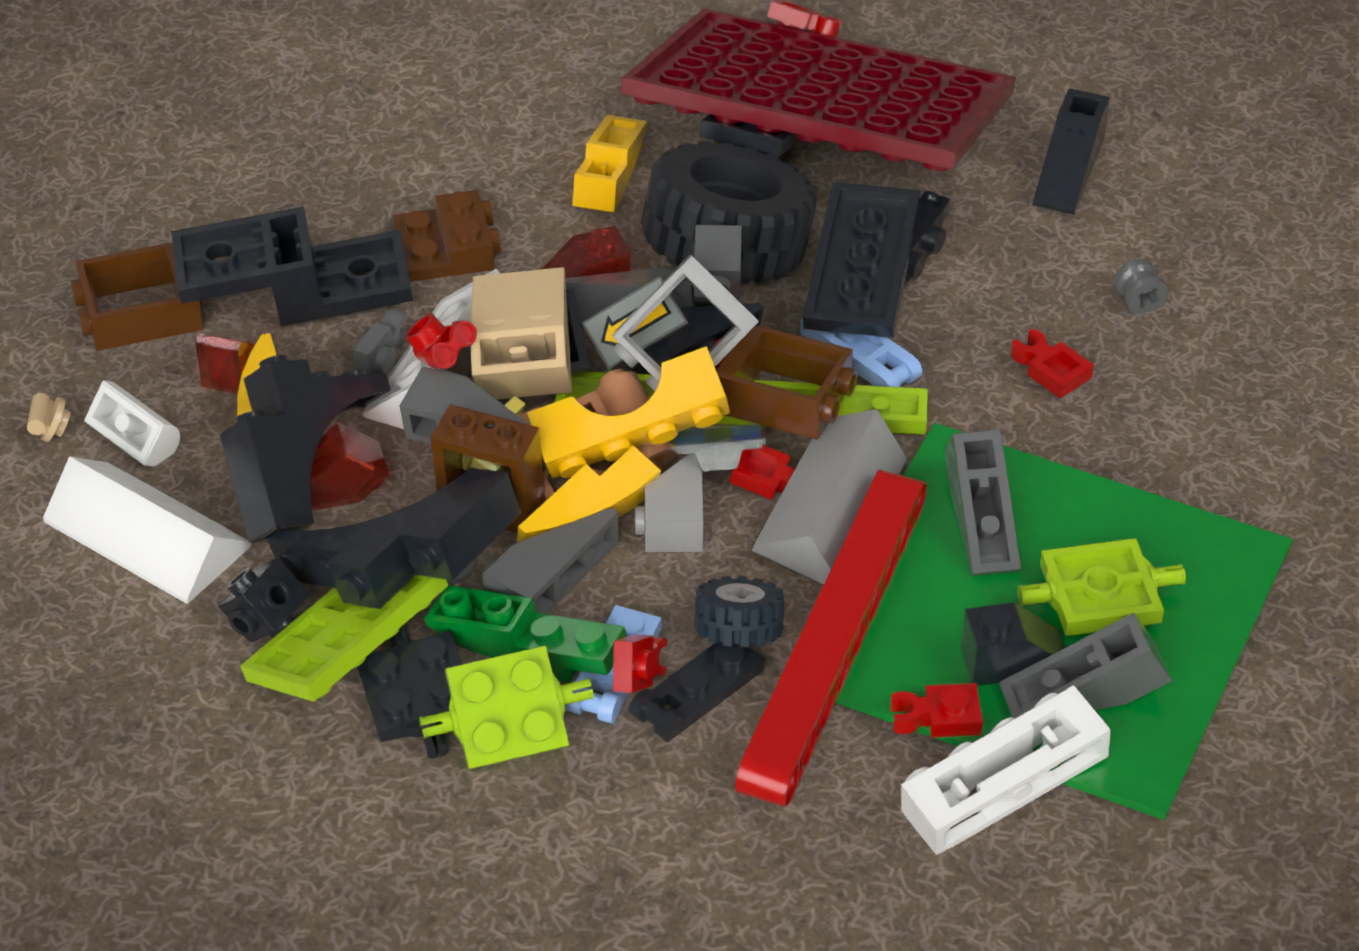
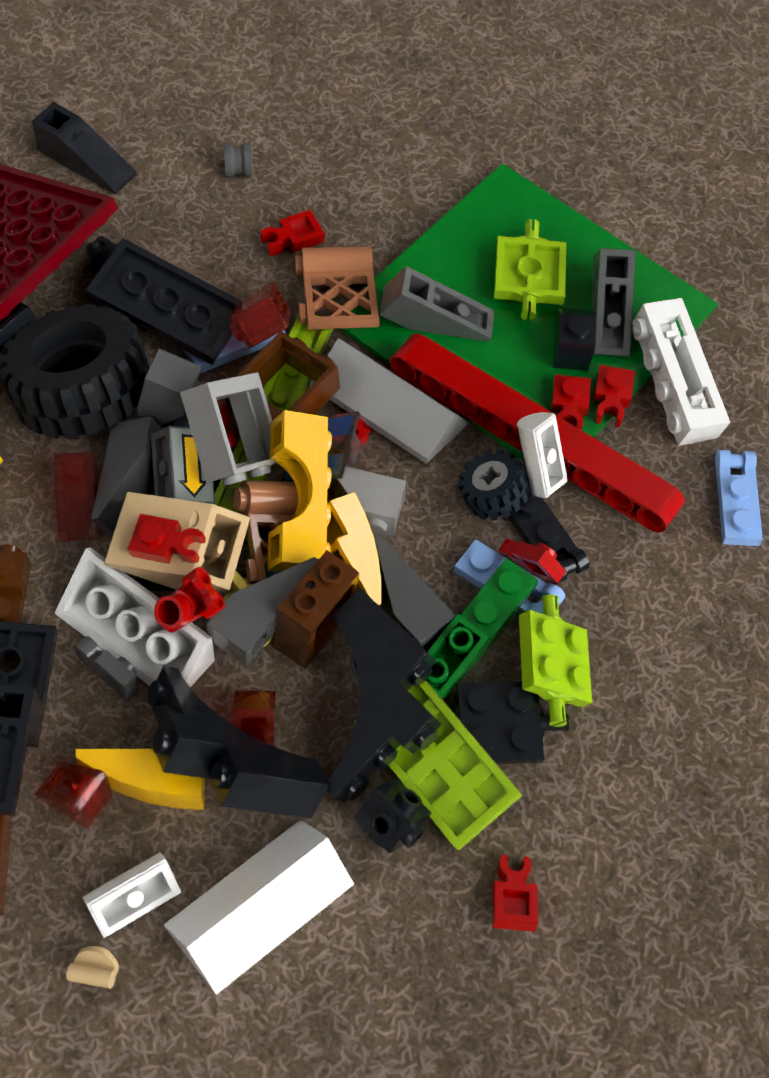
camera: 80 degrees left, 15 degrees up
(193, 734) = (513, 899): none -> red plate
(504, 298) = (161, 537): none -> red plate
(779, 622) = (542, 453): none -> white brick
(839, 883) = (738, 498): none -> light blue plate
(880, 337) = (260, 316): none -> clear red slope
(906, 667) = (571, 398): none -> red plate
(1007, 404) = (338, 270): none -> nougat piece

